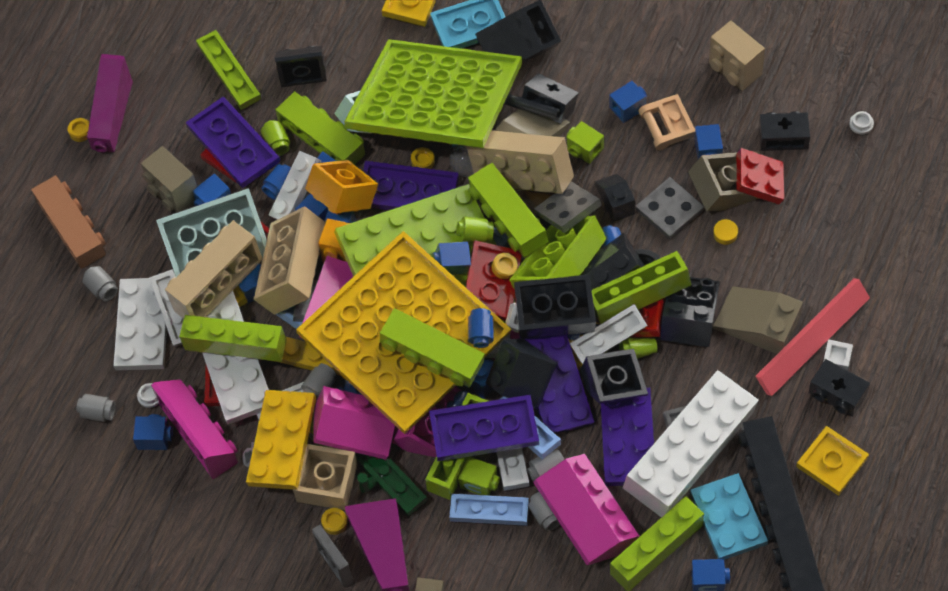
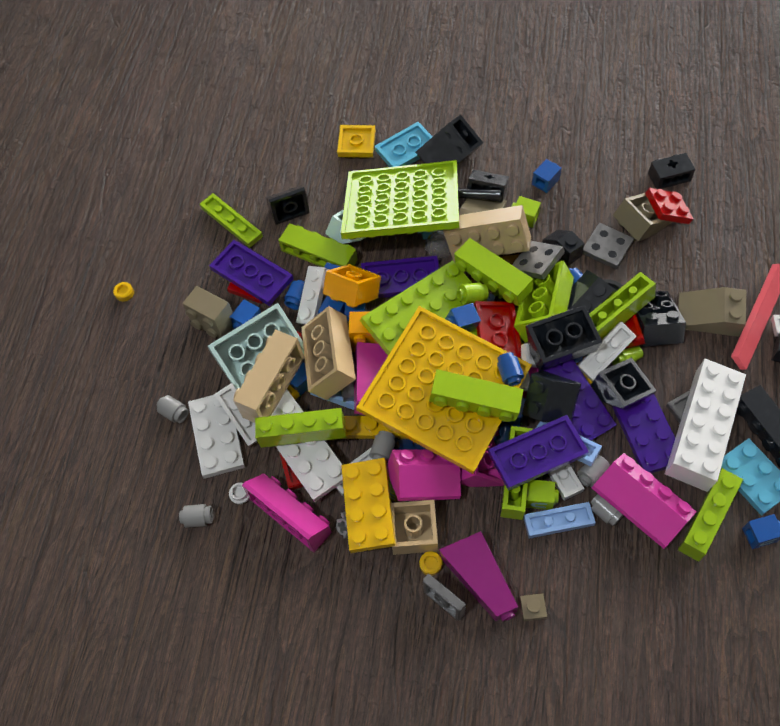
camera: 15 degrees left, 0 degrees up
(69, 222) = (133, 365): nougat brick -> none
(109, 102) = (142, 264): magenta slope -> none
(152, 432) = (251, 525): blue brick -> none
(276, 137) = (284, 260): lime brick -> none
(391, 481) = (469, 516): dark green plate -> none
(422, 158) = (404, 251): yellow tile -> none
(504, 265) = (505, 316): yellow tile -> none
(674, 118) = (585, 180): light nougat plate -> none
(708, 140) = (617, 190): blue brick -> none
(725, 232) = (657, 253): yellow tile -> none
(736, 55) = (616, 124): tan brick -> none
(861, 123) = (723, 153): white plate -> none

